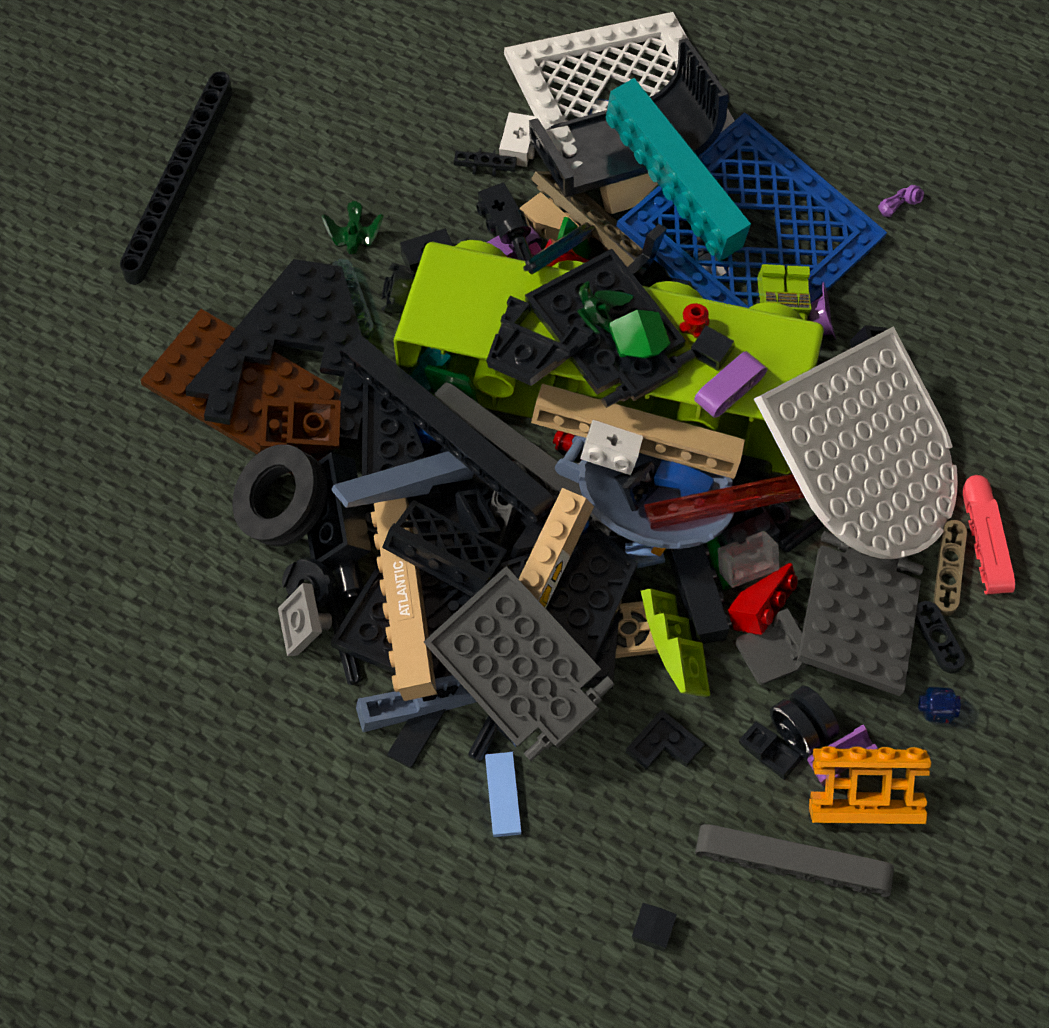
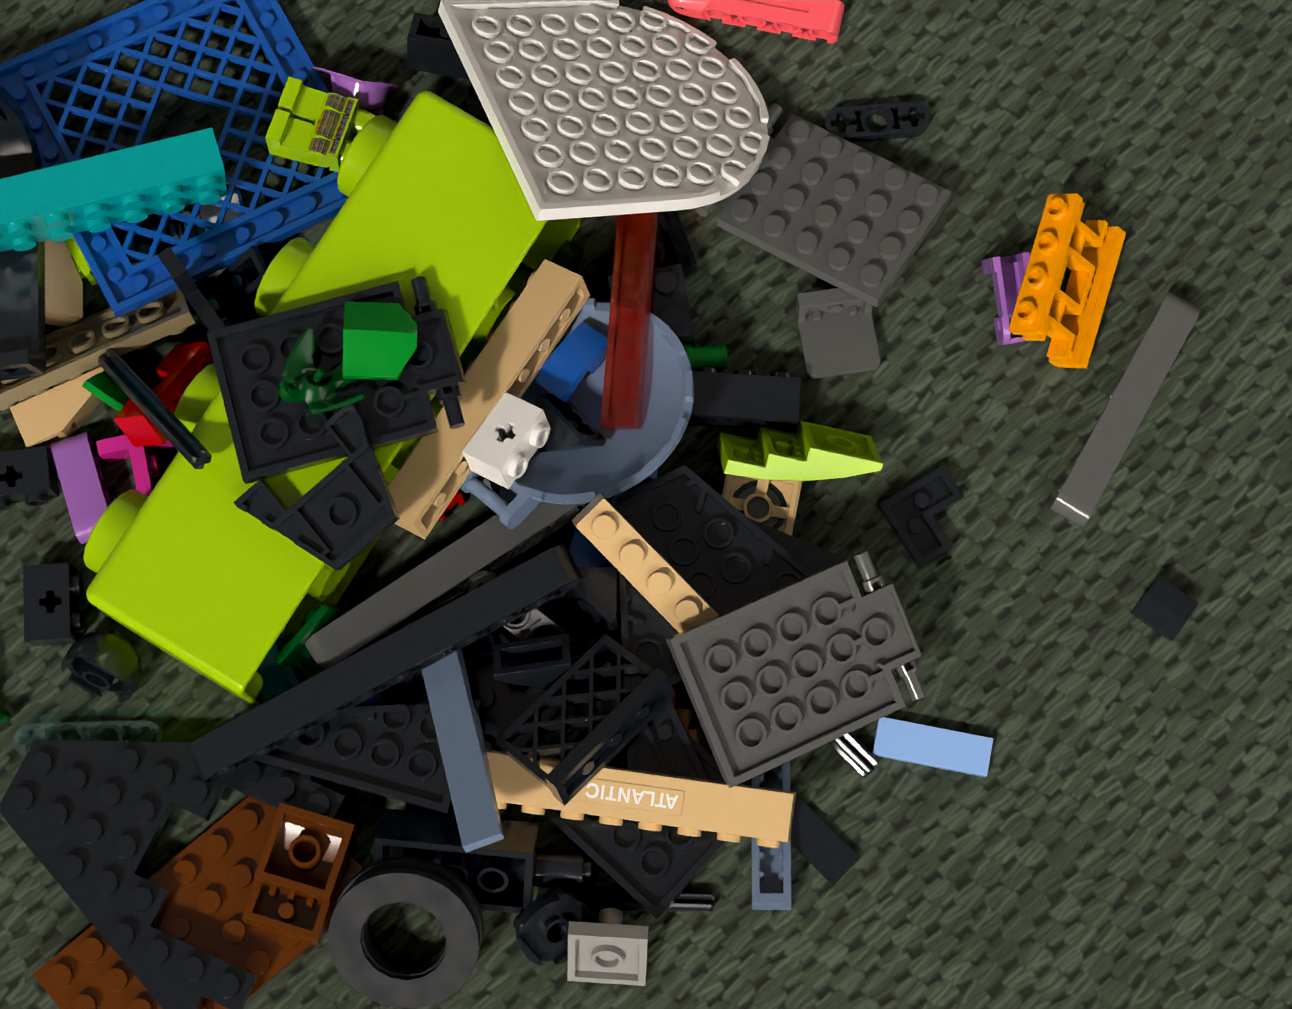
camera: 70 degrees left, 15 degrees up
(514, 232) = (77, 466): black piece -> none
(695, 319) = (367, 266): red brick -> none
(712, 348) = (419, 249): black piece -> none
(730, 384) = (487, 244): medium lavender beam -> none
(748, 560) = (711, 318): clear brick -> none
(761, 602) = (768, 328): red slope -> none
(767, 749) = (969, 386): black slope -> none
(804, 721) = (956, 328): black wheel -> none
(939, 705) = (972, 156): clear blue head -> none
(949, 567) = (787, 67): dark tan beam -> none

